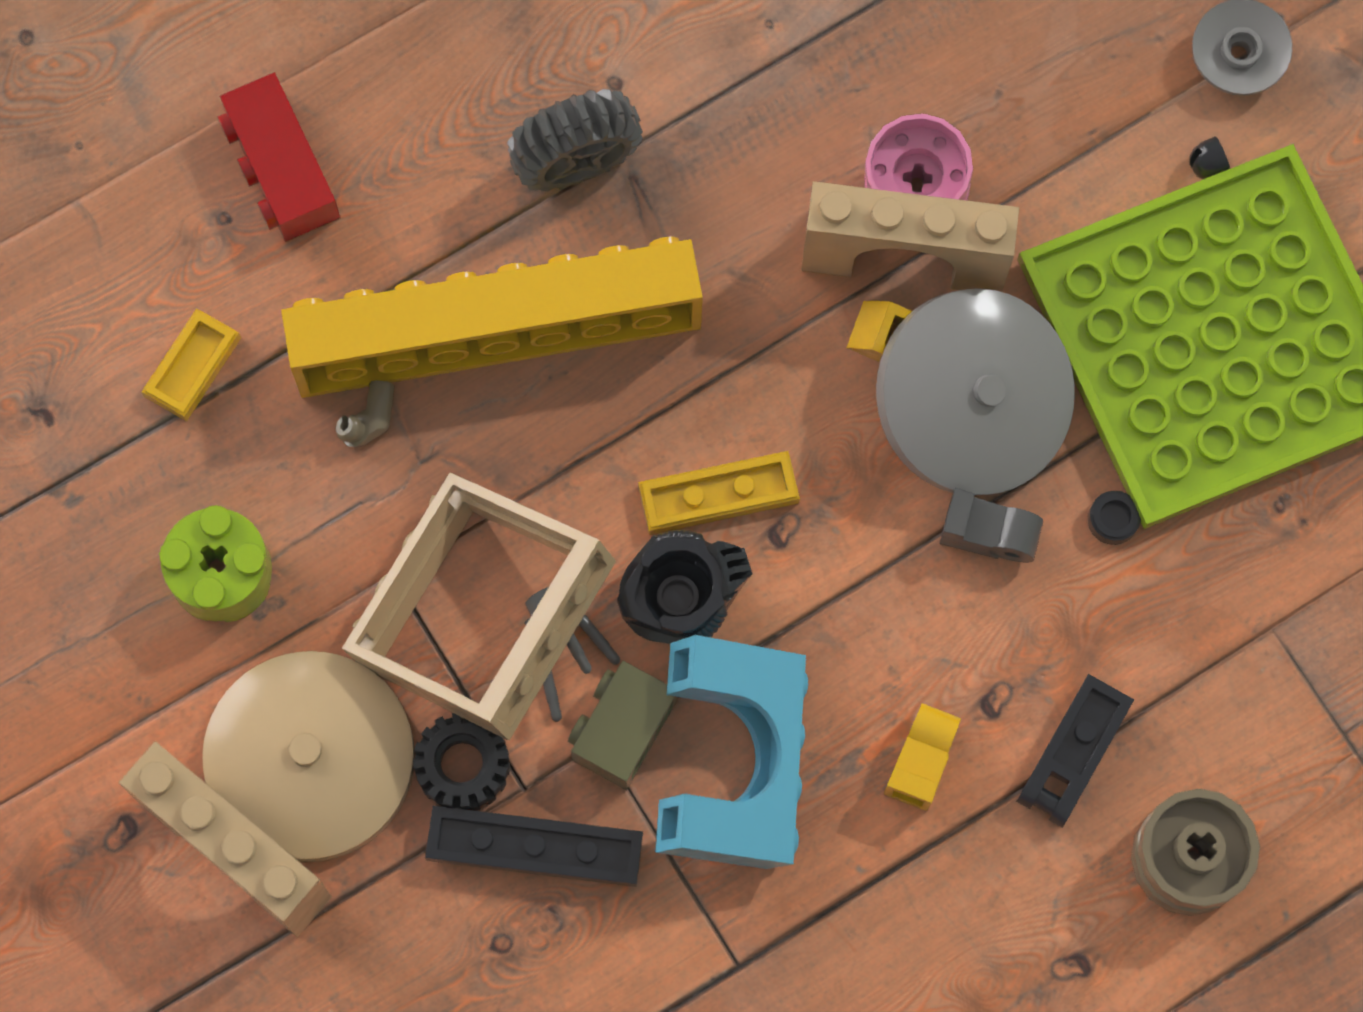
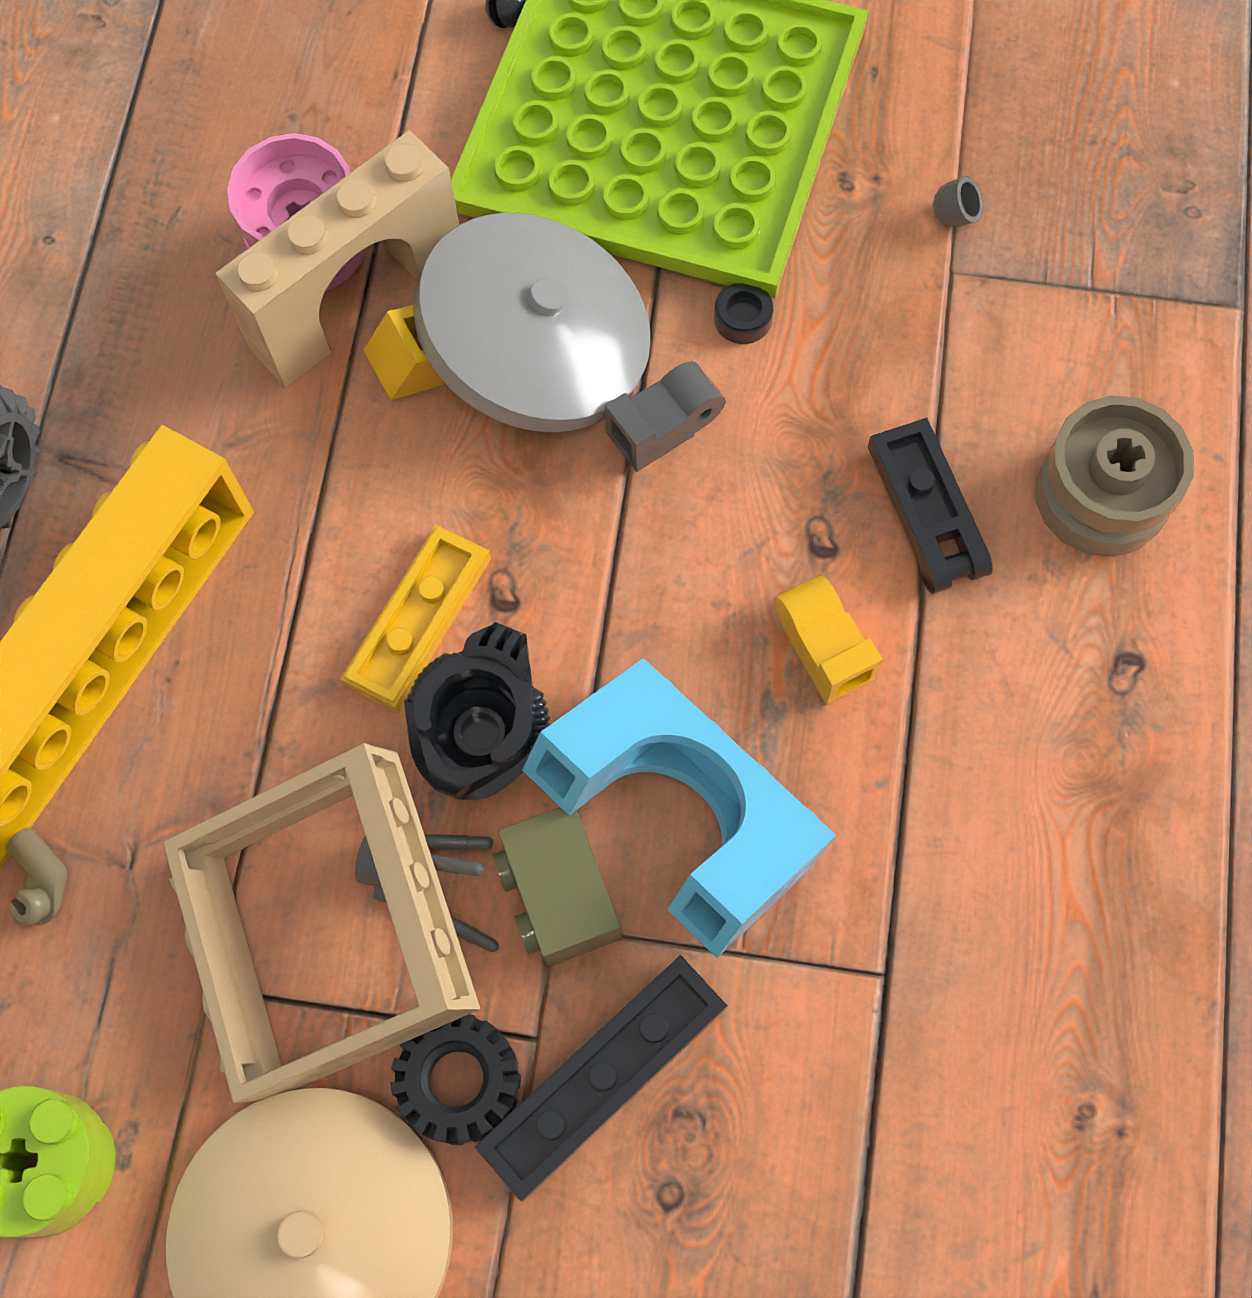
camera: 45 degrees left, 5 degrees down
(1325, 594) = (958, 202): none -> dark grey hinge

